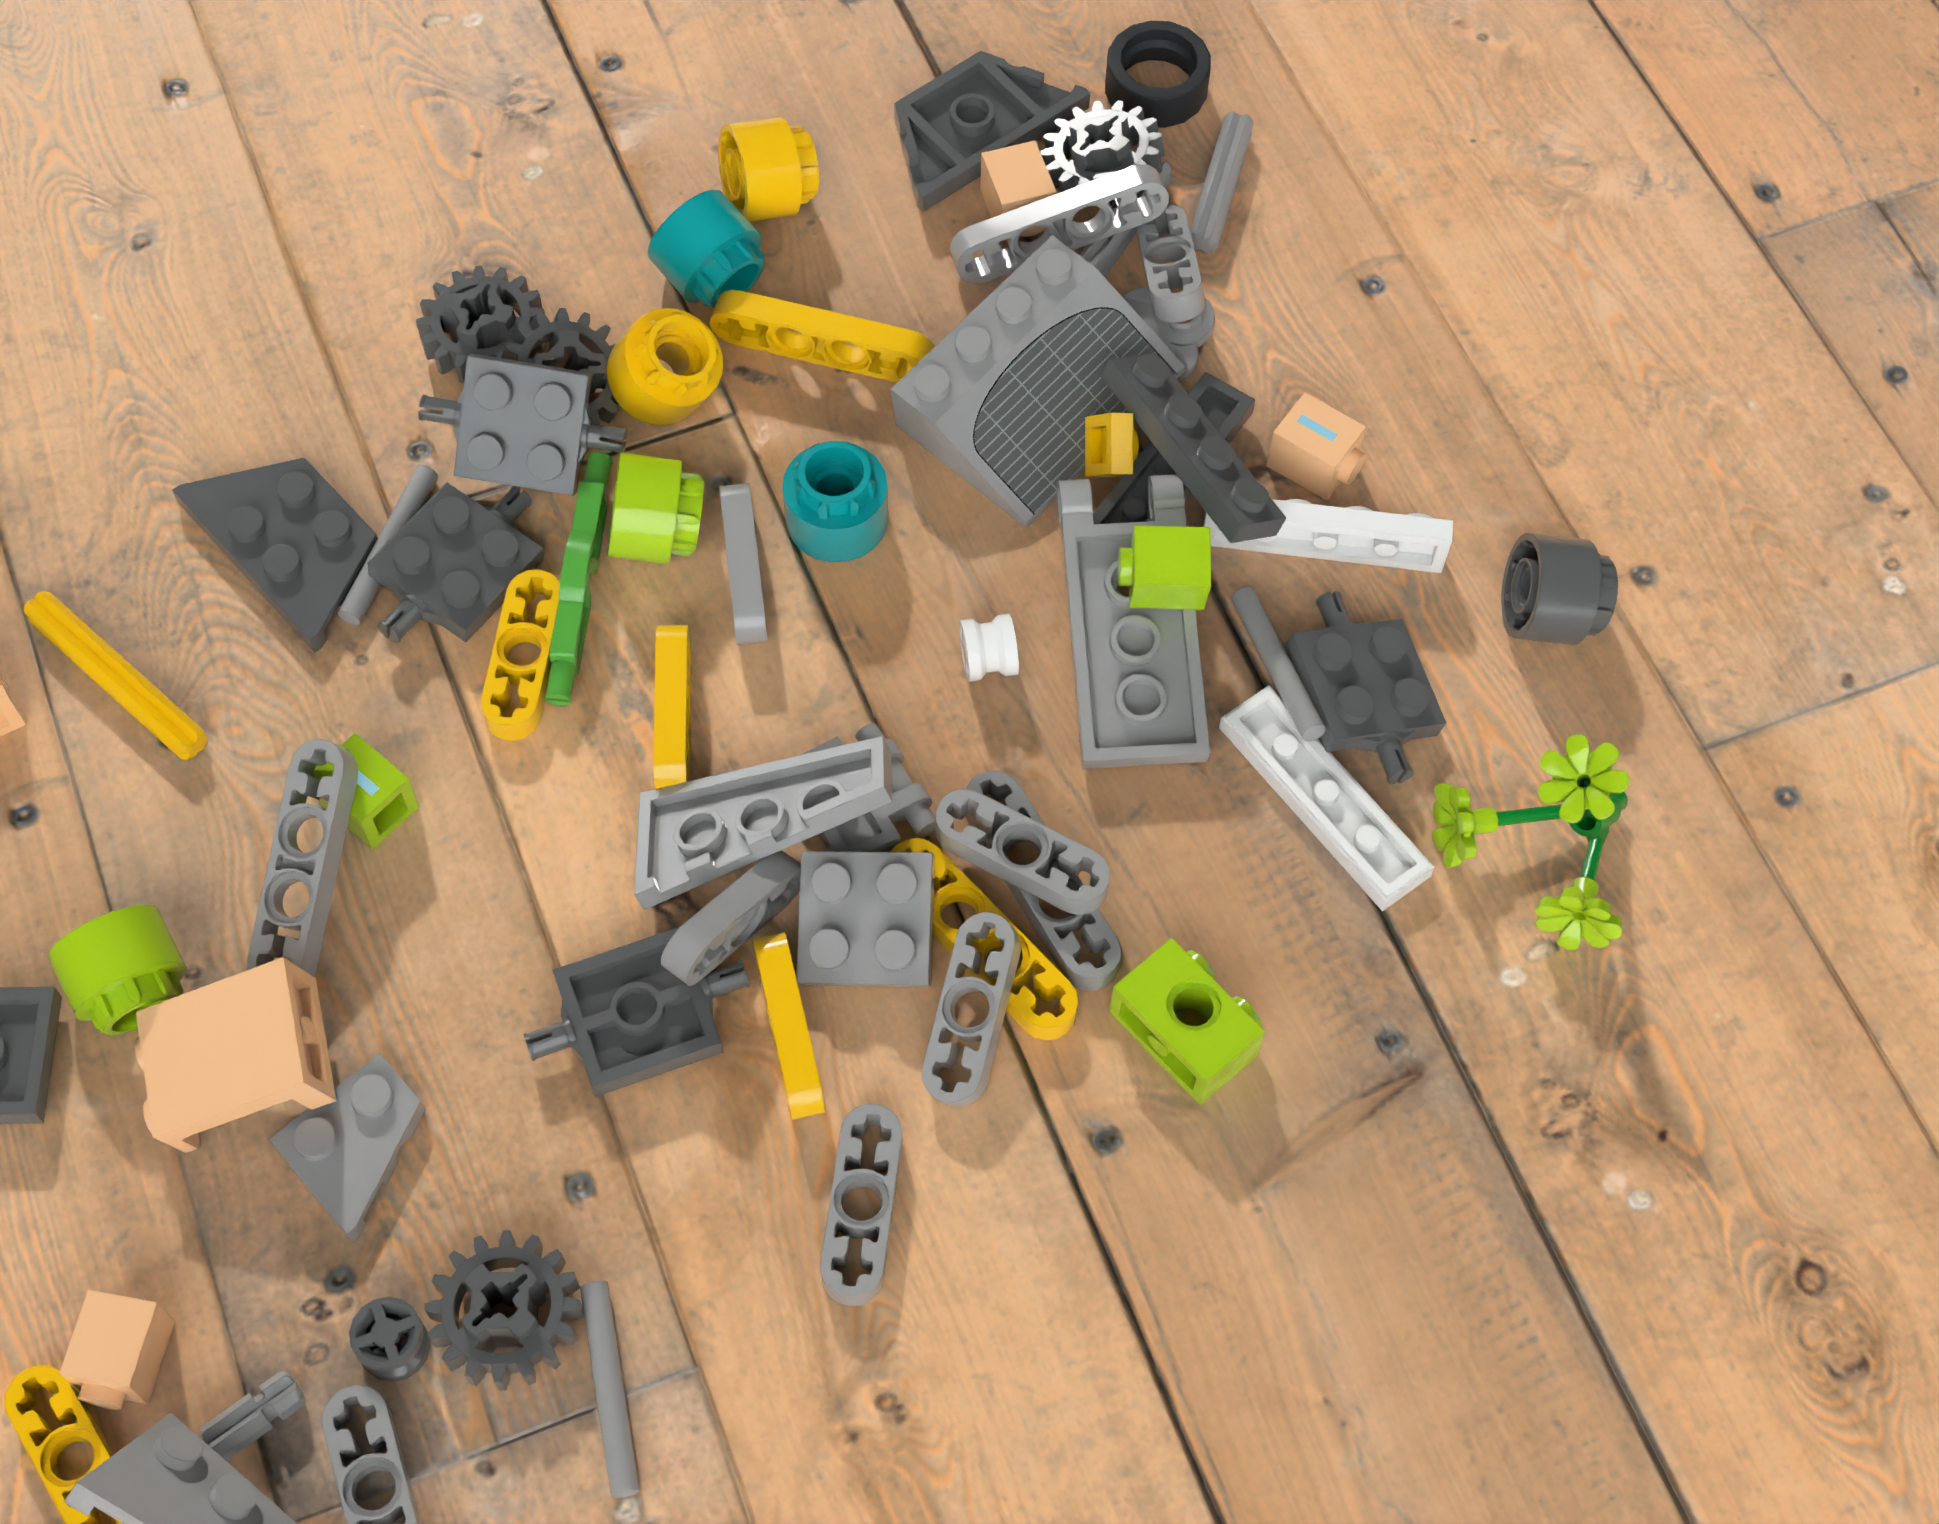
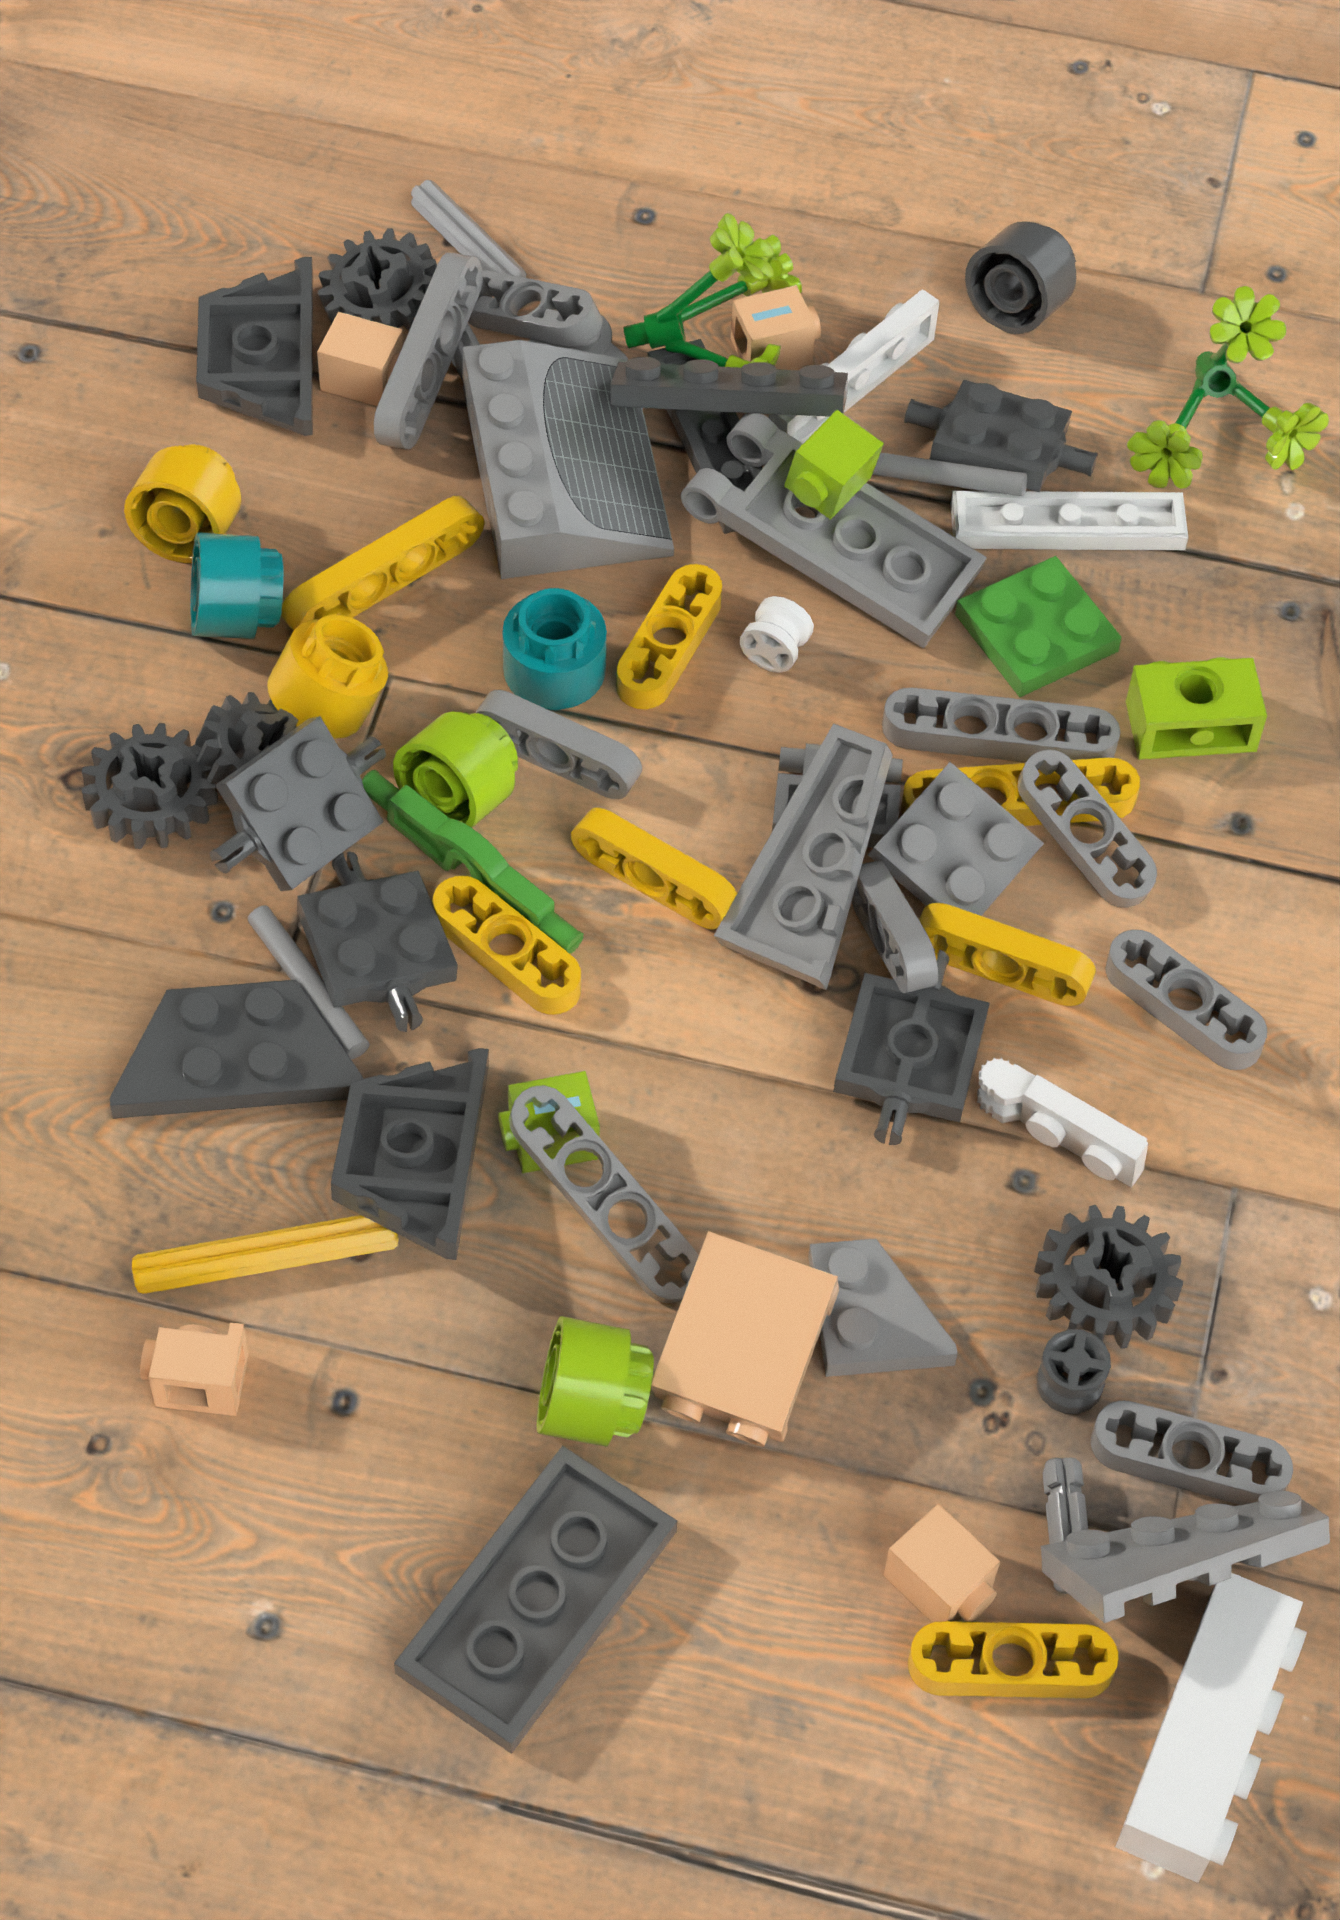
camera: 55 degrees left, 5 degrees down
(263, 705) = (412, 1150): none -> dark grey wing
(609, 1390) = (1225, 1253): light grey bar -> none
(643, 1176) = (1063, 1120): none -> white hinge
(914, 595) = (669, 659): none -> yellow beam
(1072, 856) = (966, 736): light grey beam -> none
(1110, 445) = (669, 445): yellow plate -> none
(1166, 43) = (328, 178): black tyre -> none
(1183, 842) = (1038, 626): none -> bright green plate
(1295, 353) = (759, 269): none -> plant

